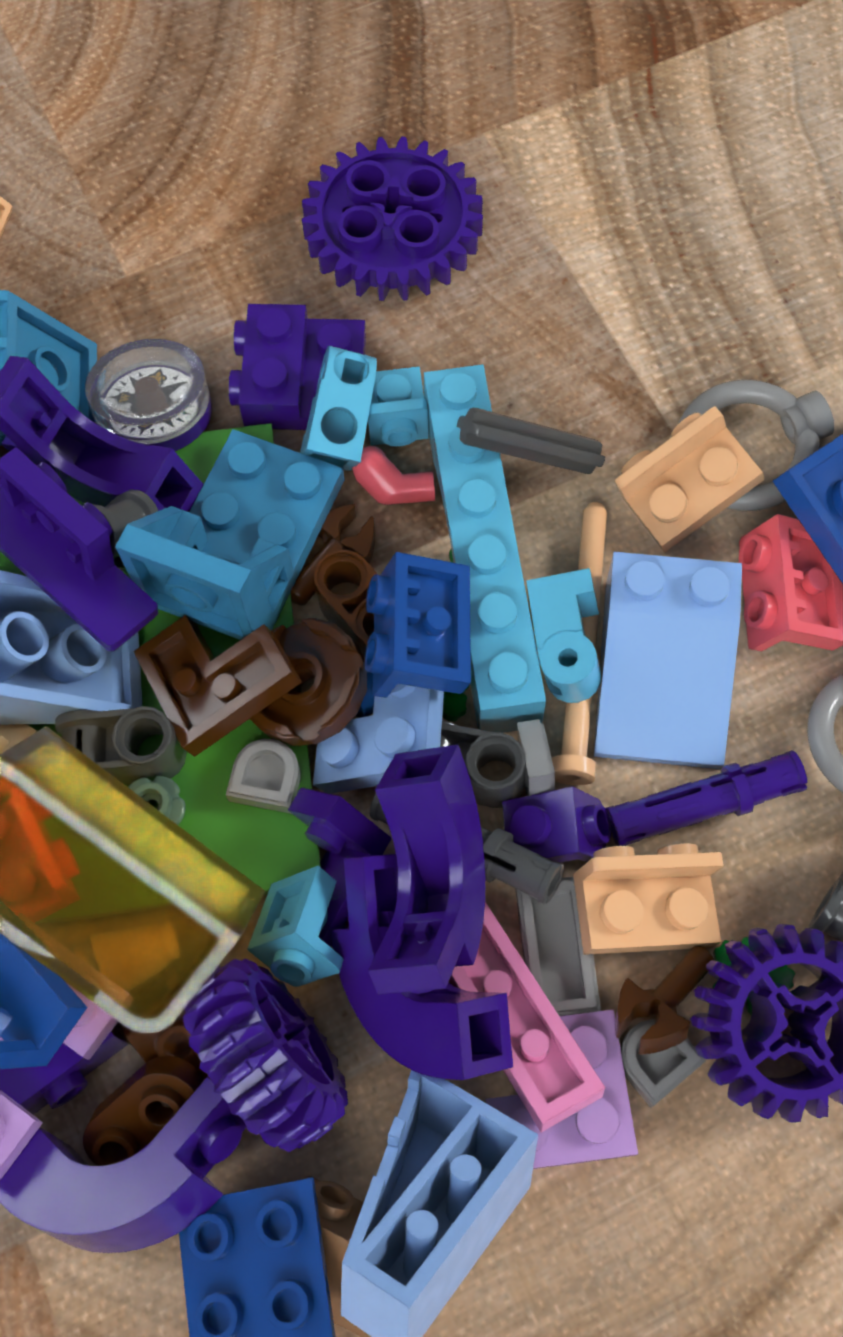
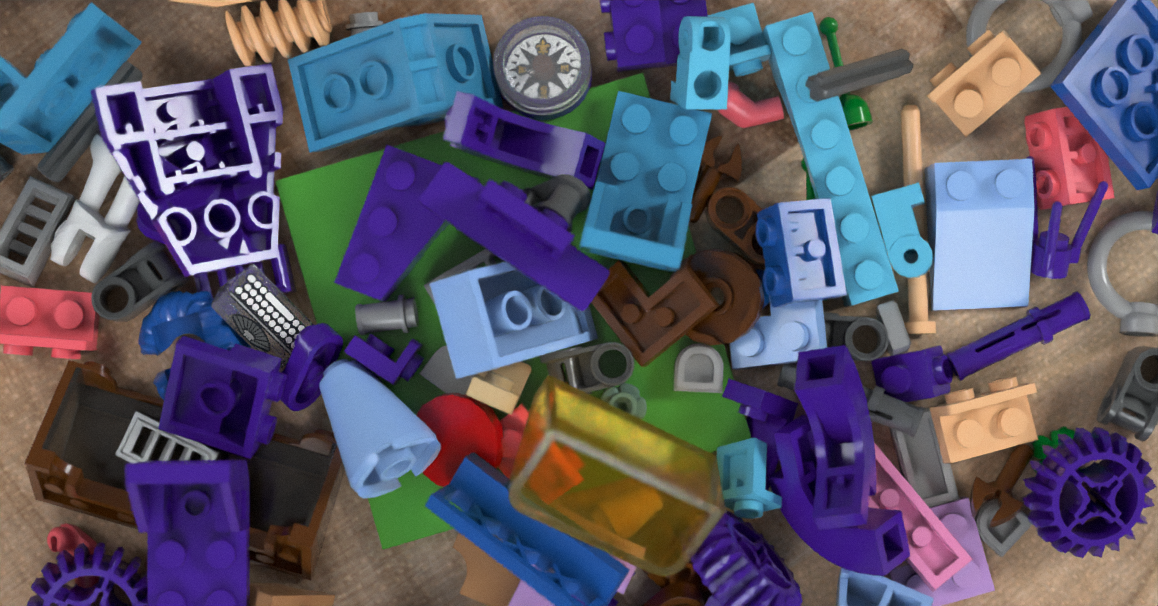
camera: 10 degrees left, 20 degrees up
(523, 493) = (854, 107): none -> green hinge
(760, 695) = (1051, 250): none -> dark purple plant

